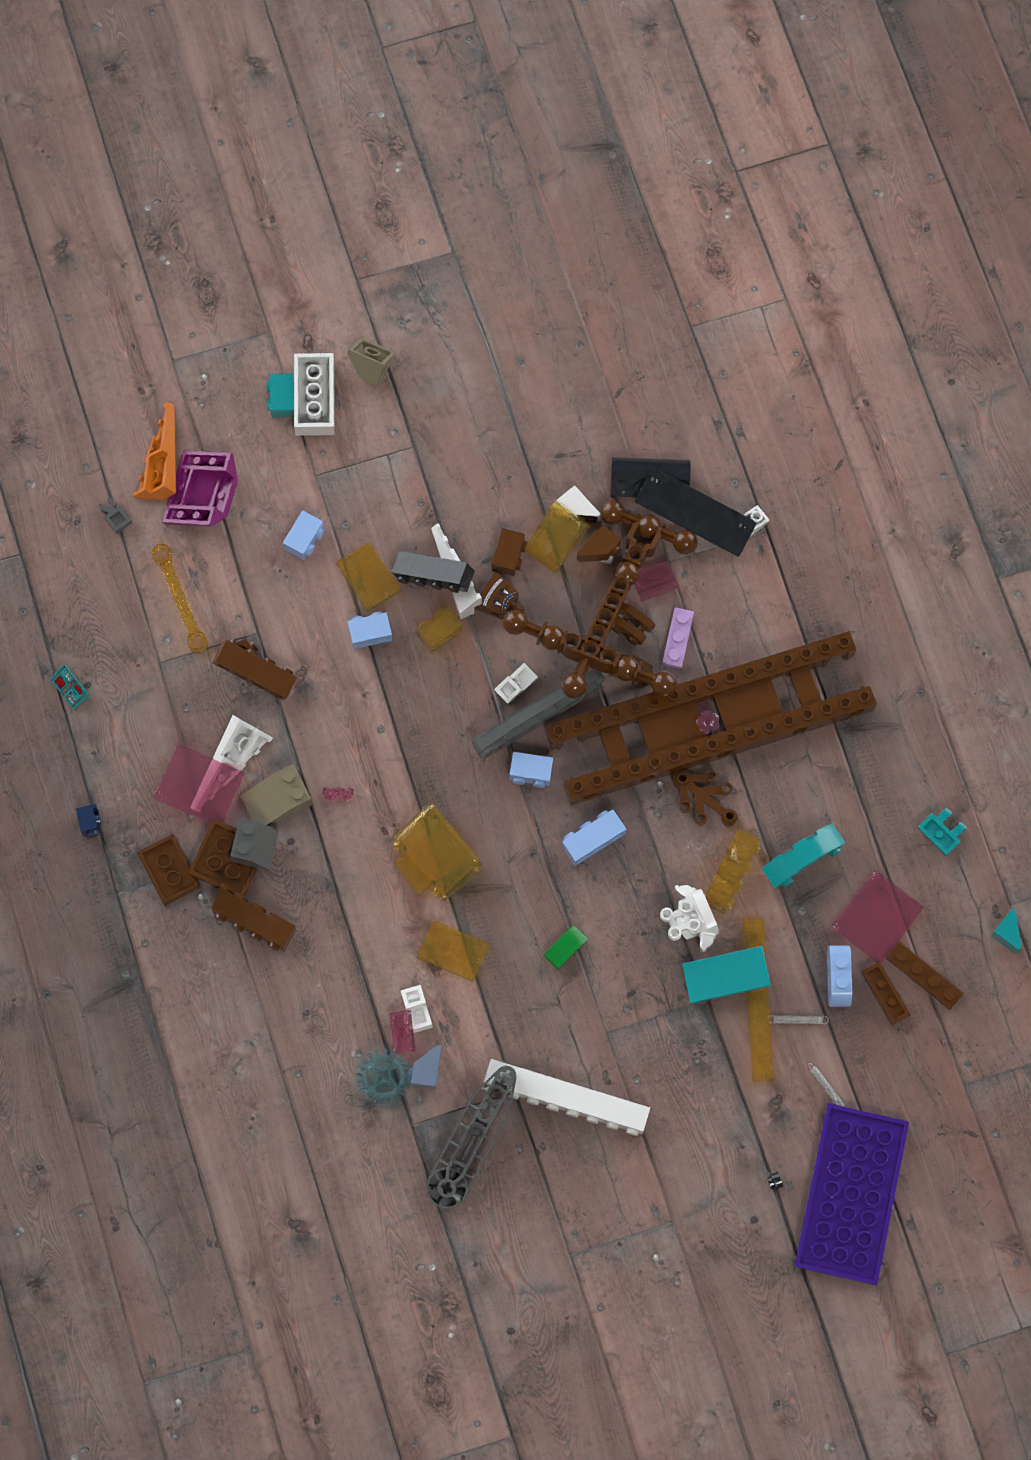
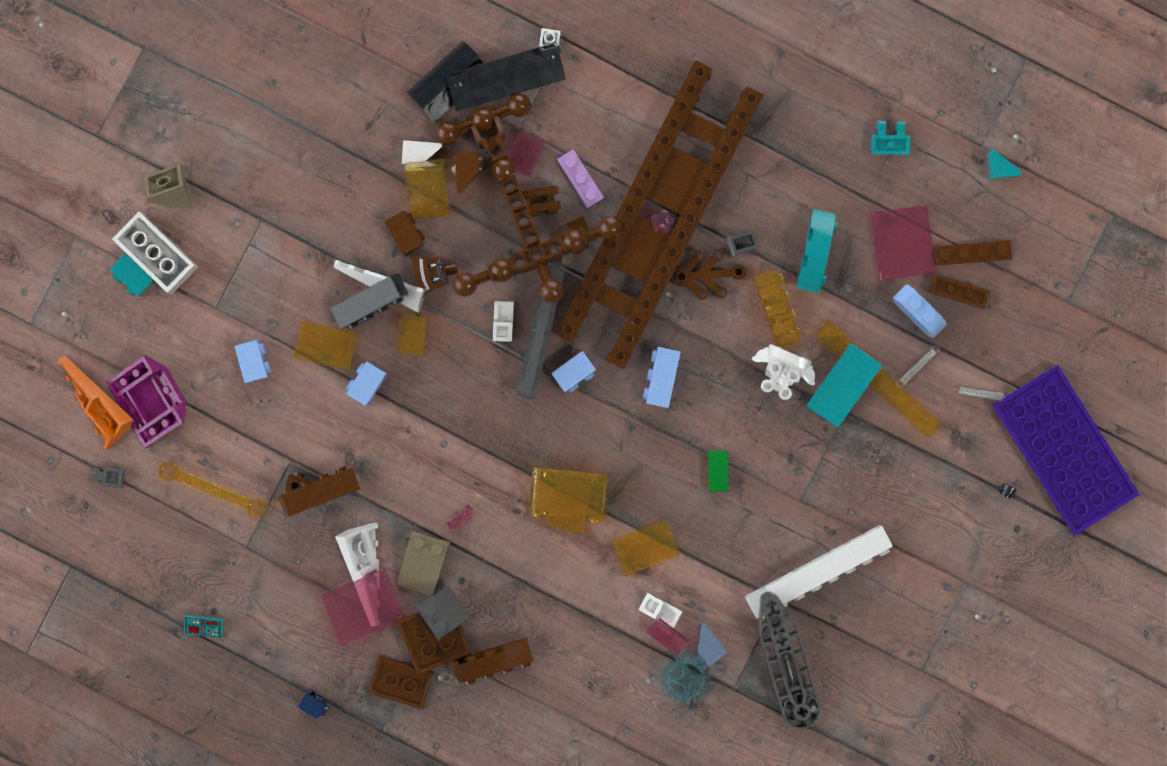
camera: 45 degrees left, 15 degrees up
(752, 797) = (741, 243): none -> dark grey slope

